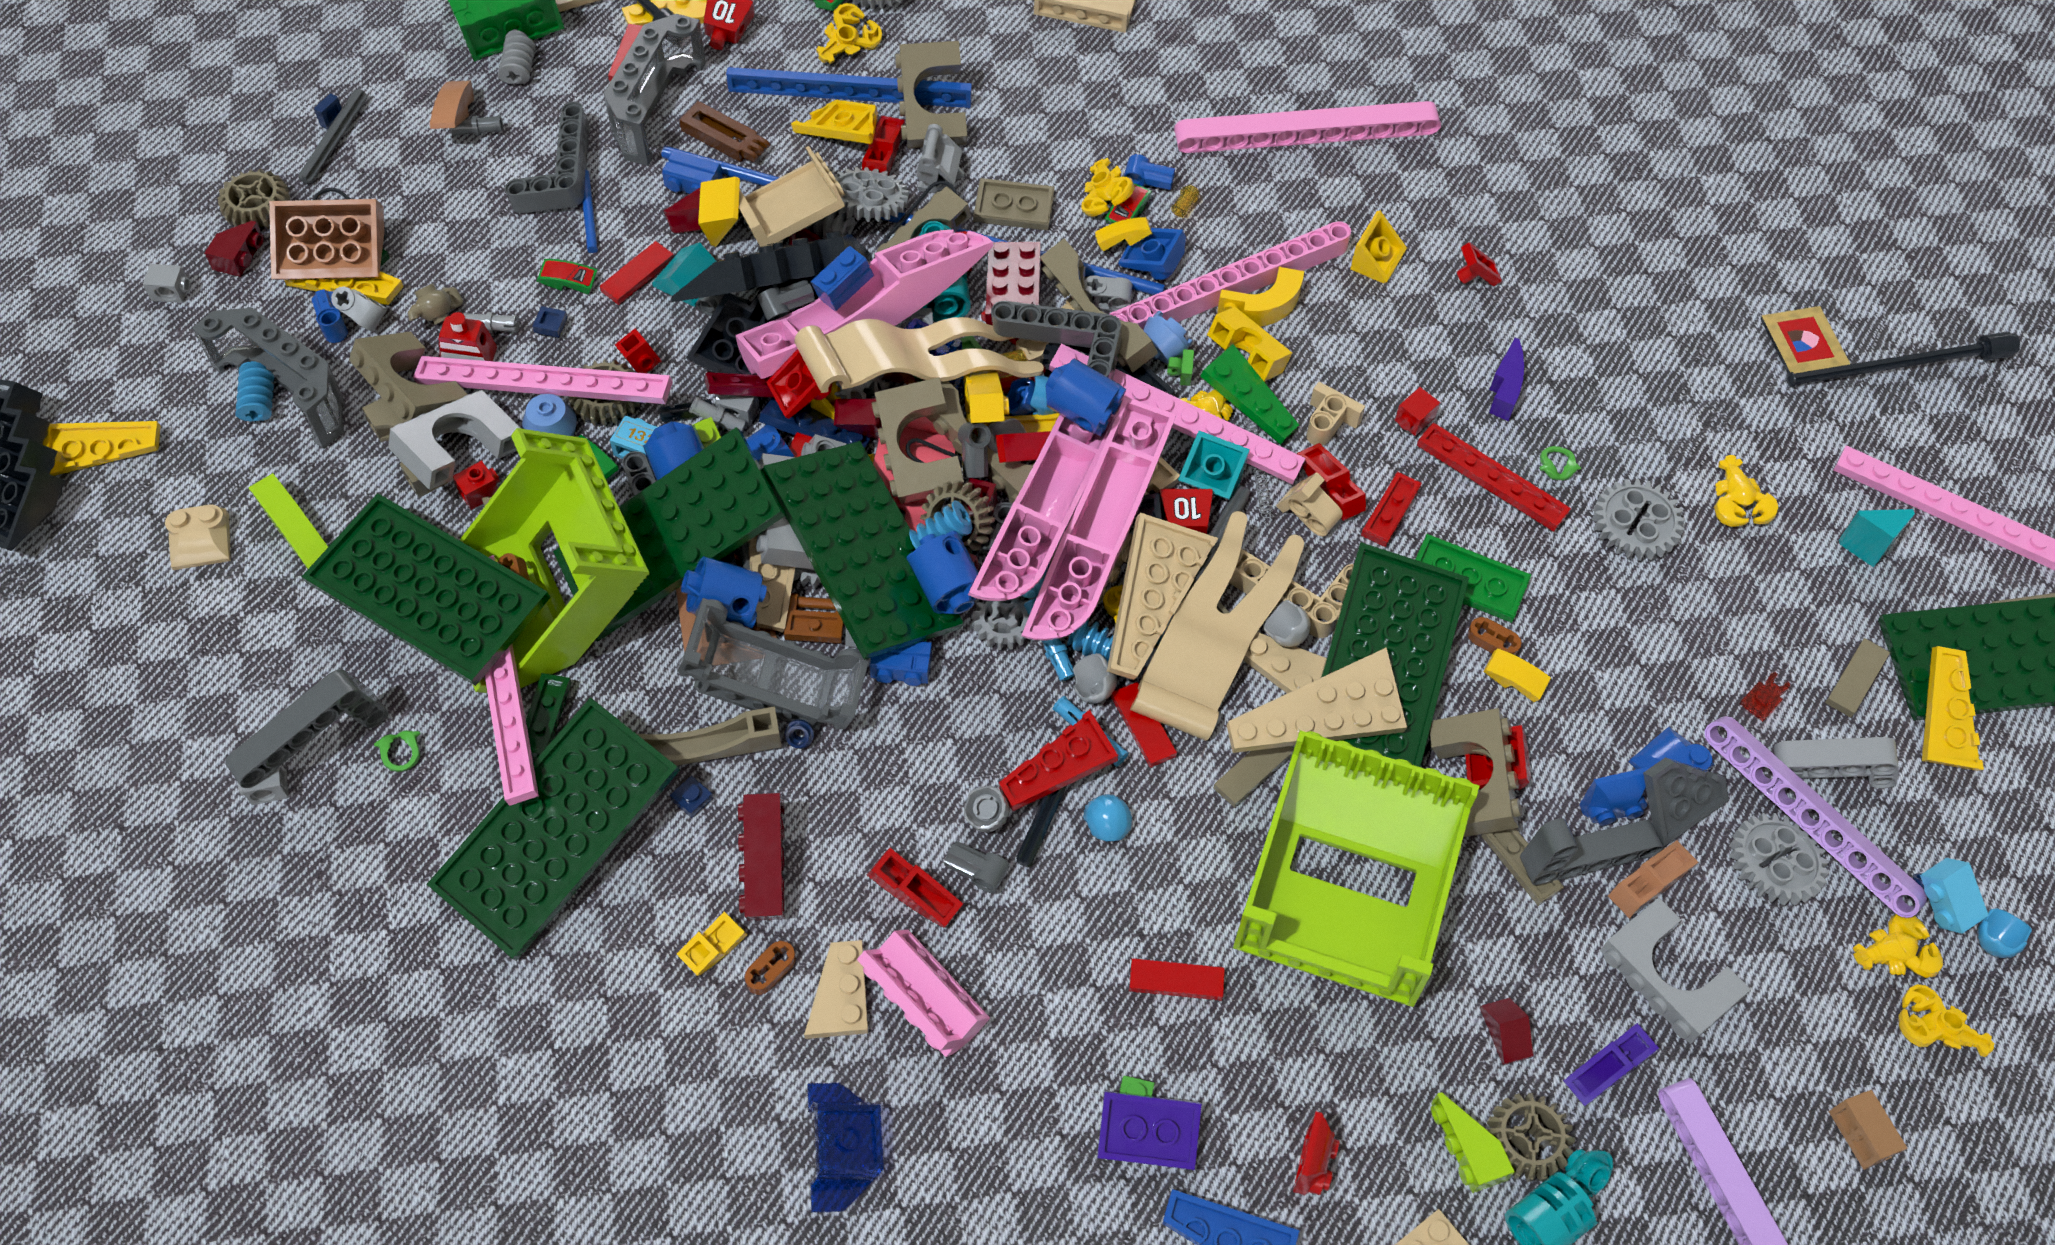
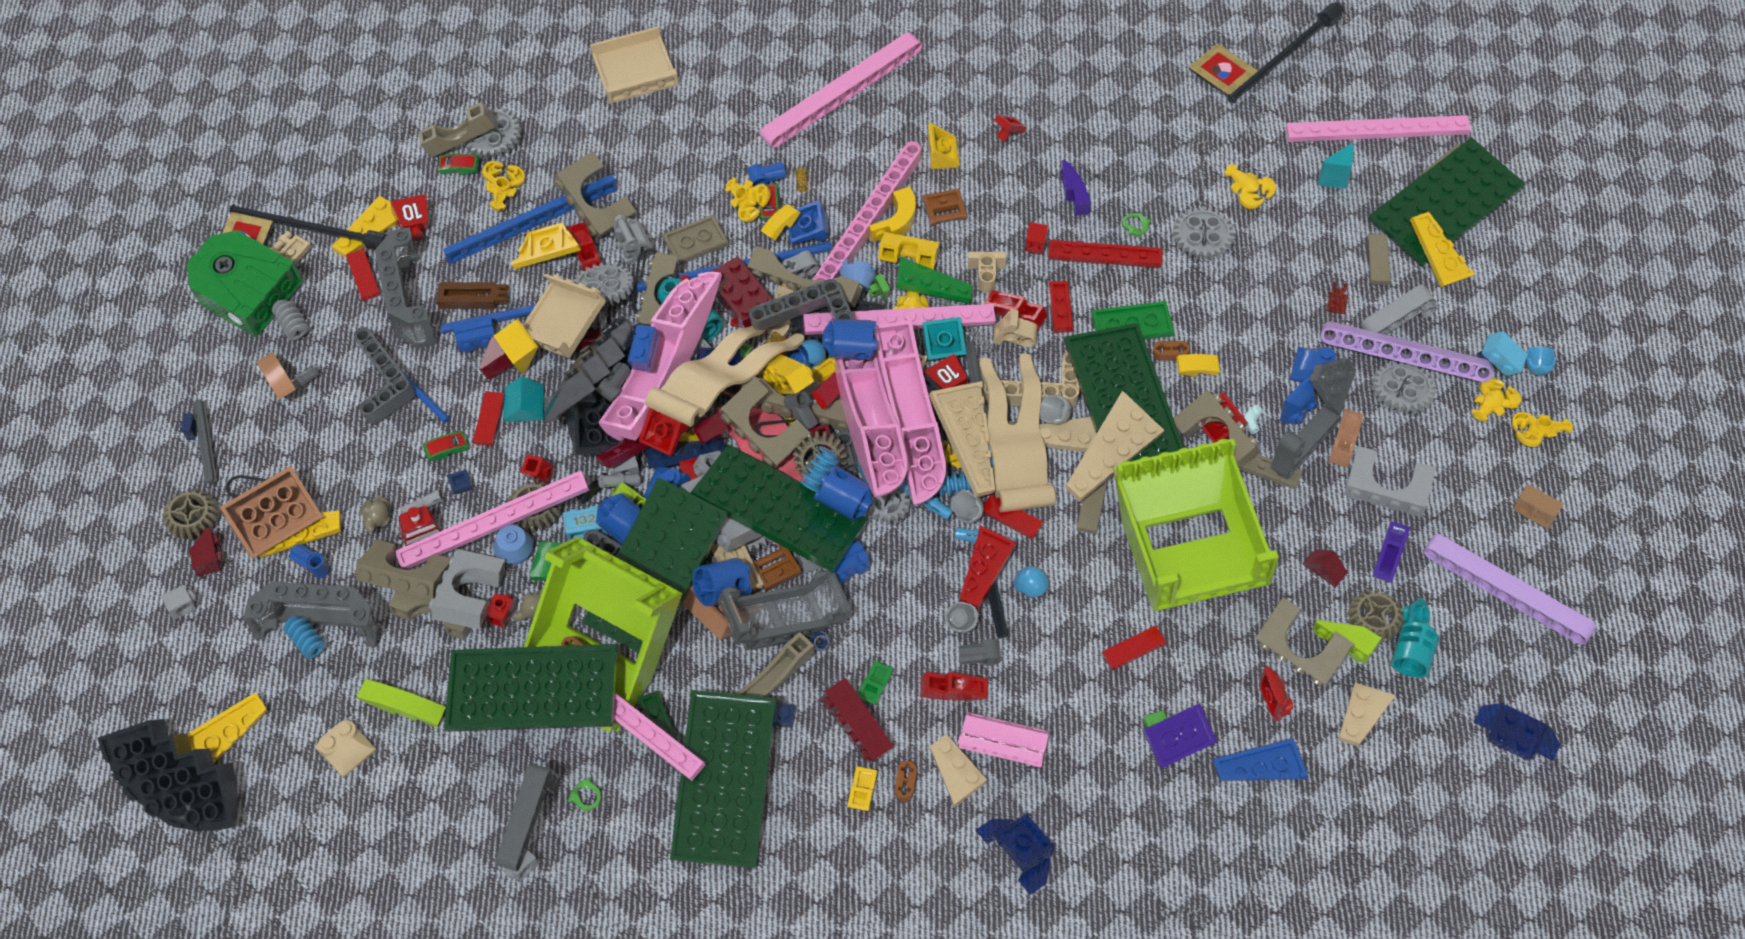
camera: 30 degrees left, 0 degrees up
(361, 308) = (332, 543): light grey piece -> none
(826, 826) = (875, 683): none -> green slope
(1335, 312) = (943, 202): none -> dark orange plate
(1369, 1081) = (1275, 637): none -> dark tan arch
(1540, 780) = (1251, 417): none -> light aqua arm

